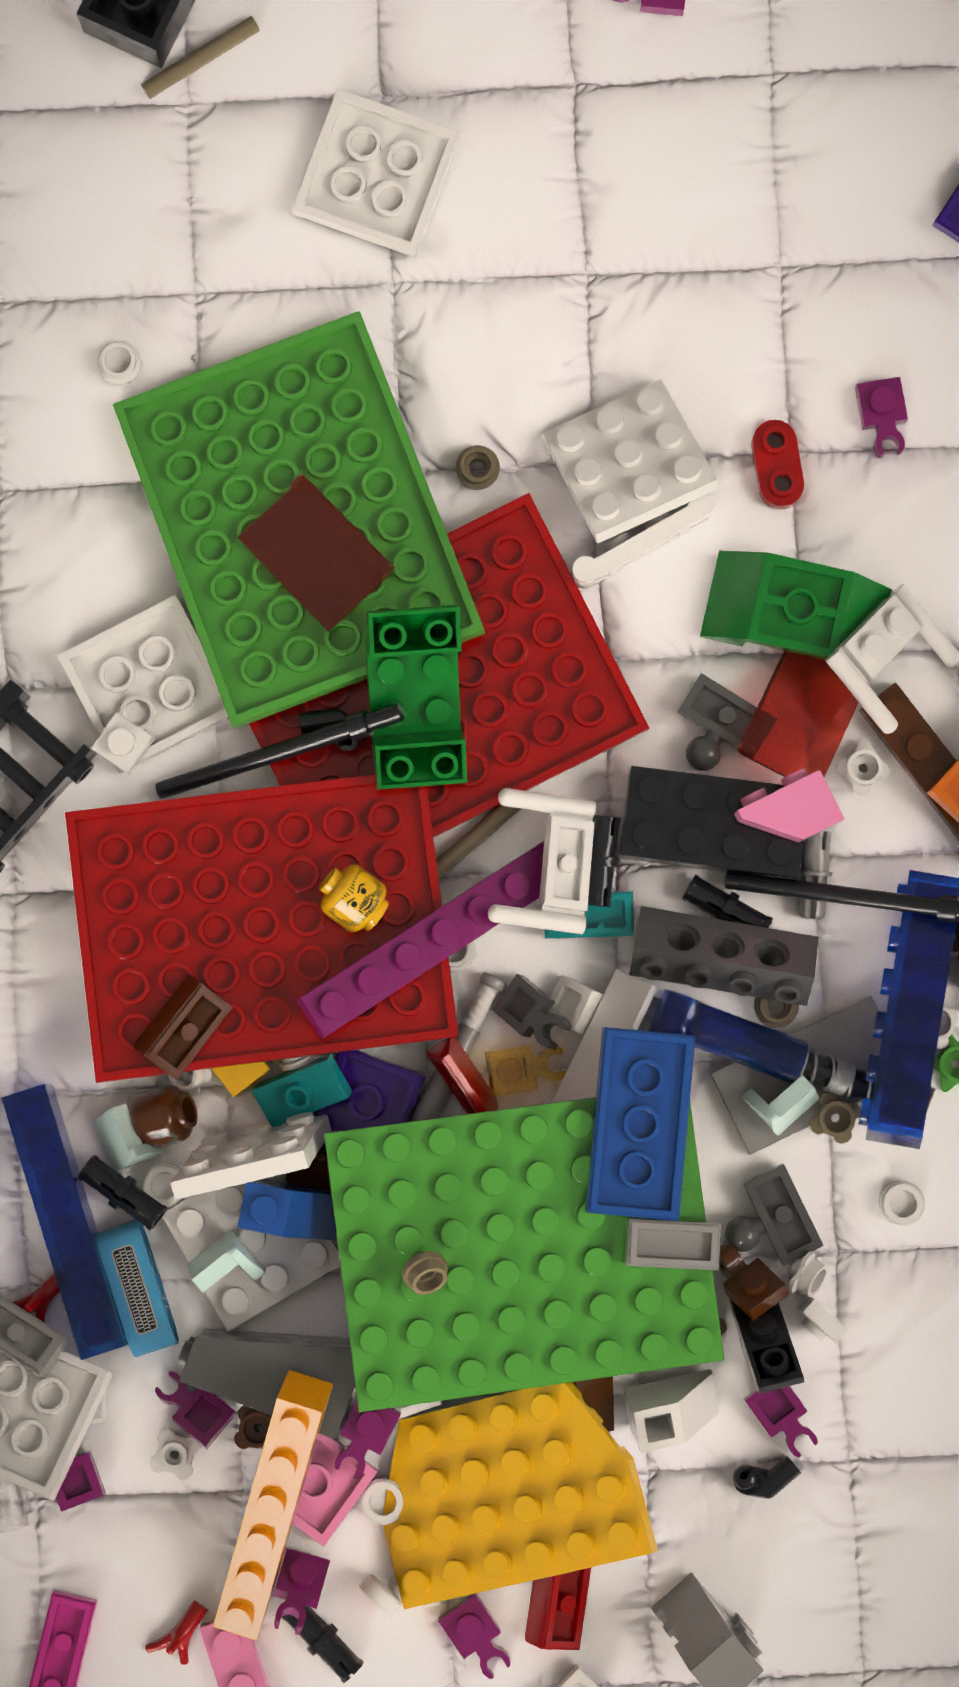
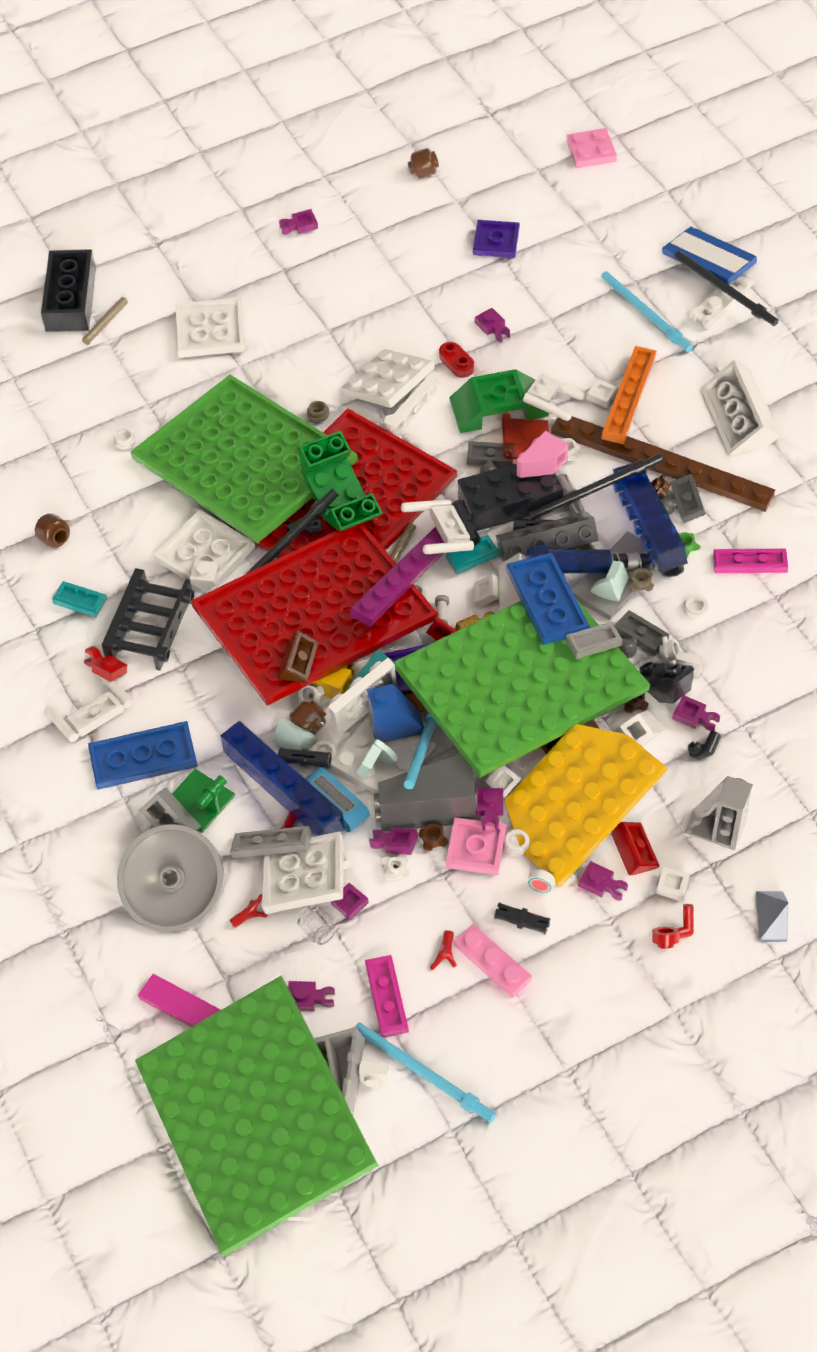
camera: 25 degrees left, 30 degrees down
(272, 1504) = (460, 842): brick -> none
(282, 1321) = (420, 752): none -> medium azure bar
(299, 1585) = (495, 893): magenta plate -> none
(316, 553) = (260, 460): clear red piece -> none
(353, 898) = (354, 572): yellow head -> none
(425, 1272) = (478, 690): dark tan plate -> none
(527, 1010) = (465, 599): dark grey plate -> none
(752, 1285) = (645, 658): reddish brown plate -> none

